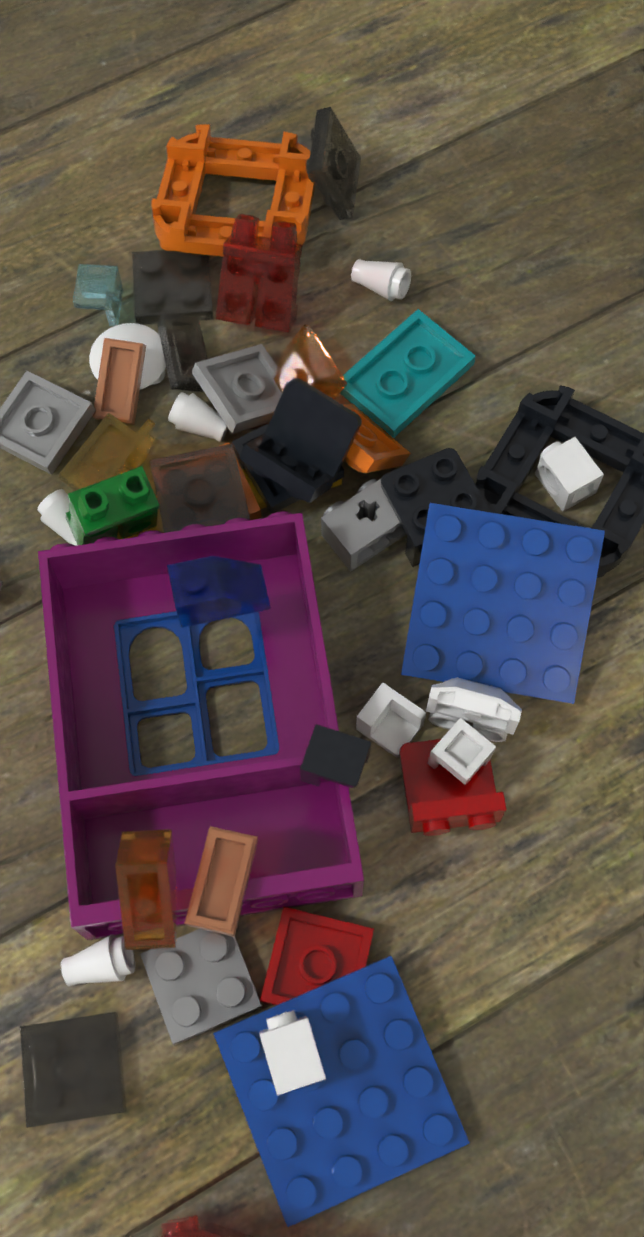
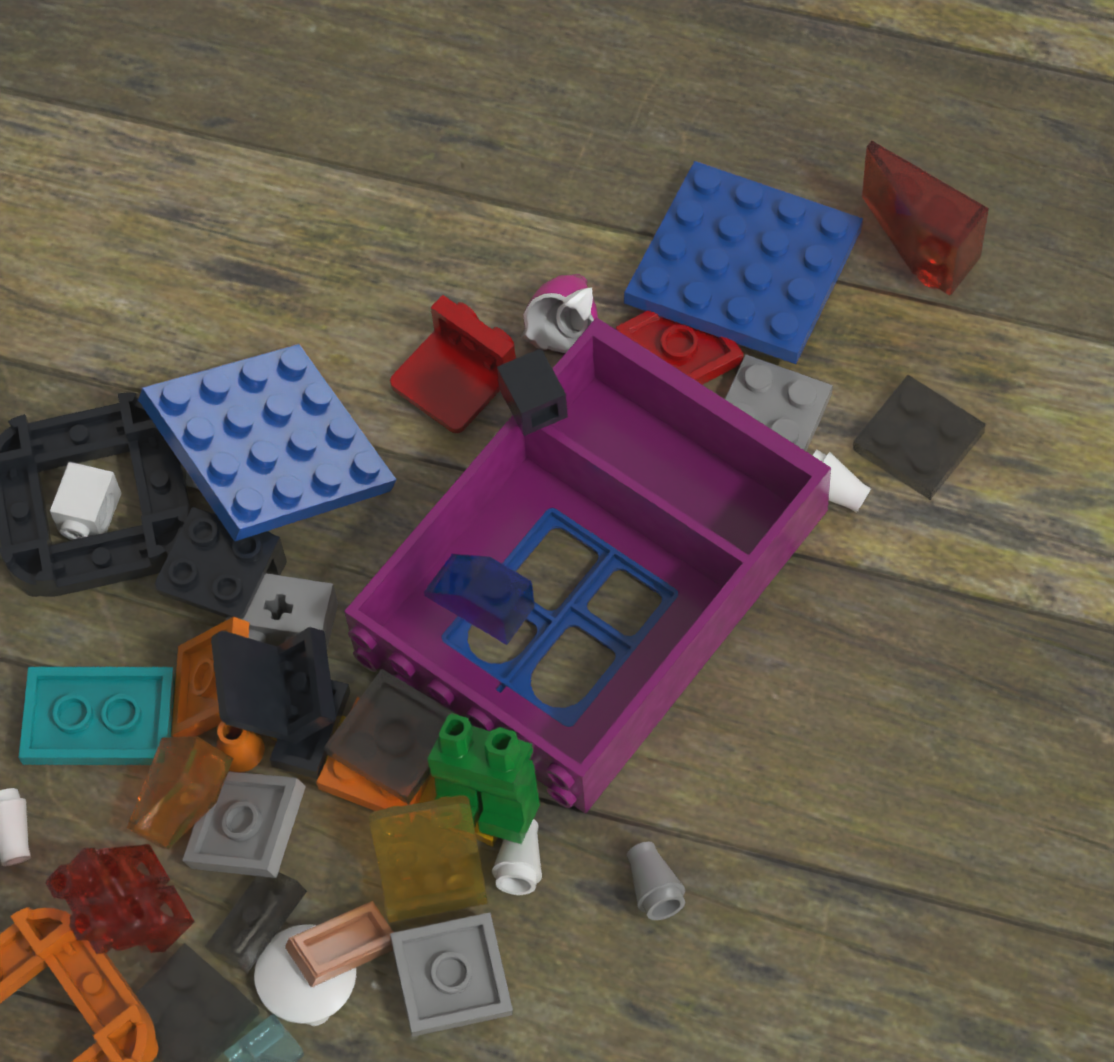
camera: 130 degrees left, 5 degrees down
(147, 889) = (749, 428): clear orange slope -> none
(197, 417) = (313, 849): white cone -> none
(221, 881) = (694, 397): nougat tile -> none
(291, 1052) = (757, 280): white brick -> none
(390, 719) = (442, 455): white panel -> none
(424, 904) = (559, 313): none -> white hat
(462, 751) = (426, 366): white panel -> none
(483, 705) = (376, 395): white slope -> none

